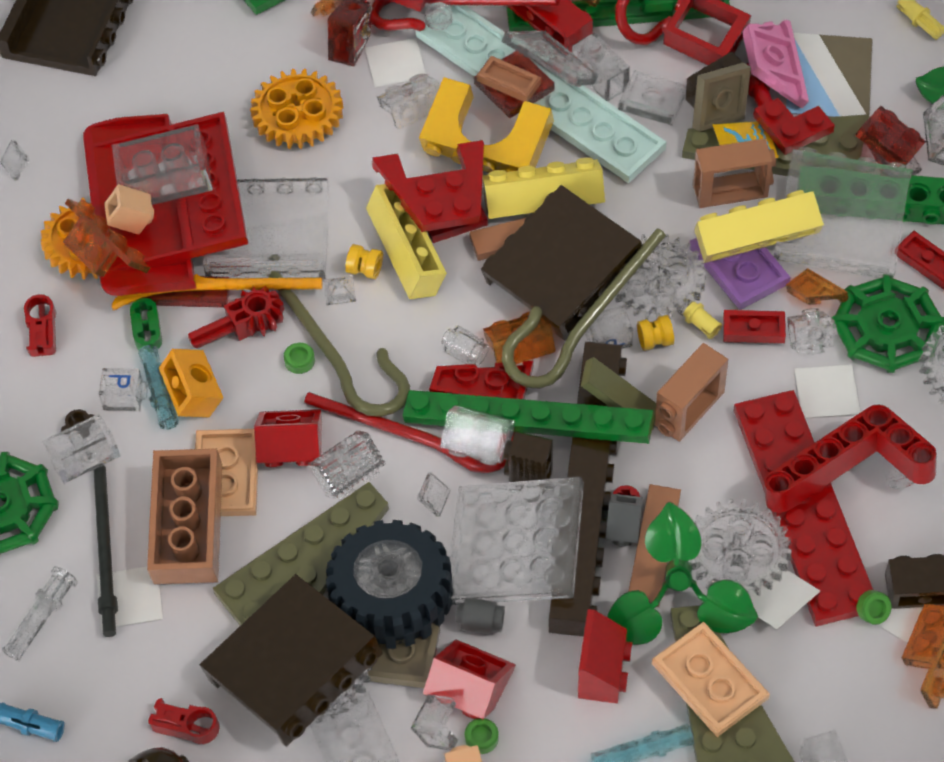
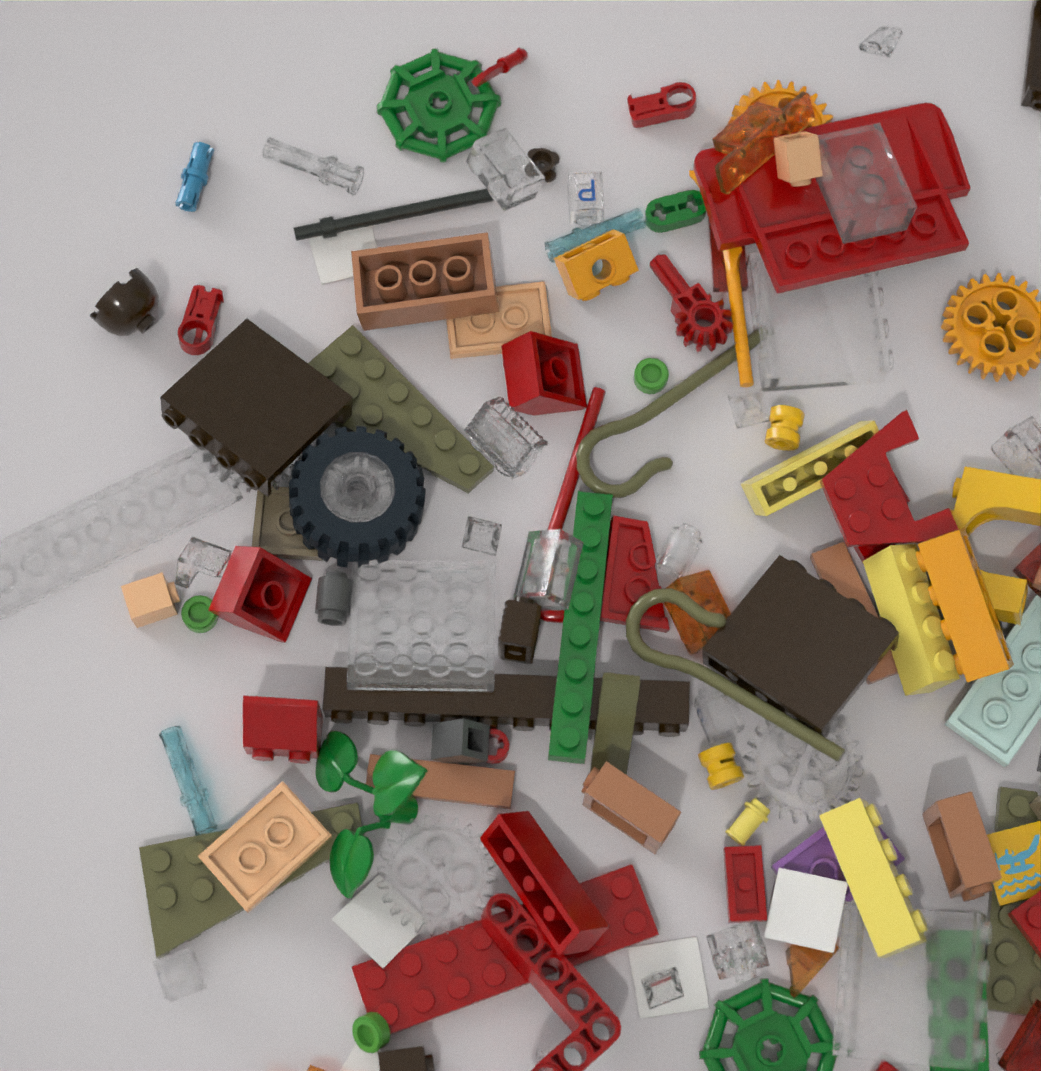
camera: 80 degrees right, 15 degrees up
(540, 141) = (964, 605): none -> light orange brick
(753, 455) = (544, 882): none -> red brick
(779, 281) = (806, 910): none -> white sticker
(836, 390) = (662, 987): none -> clear slope

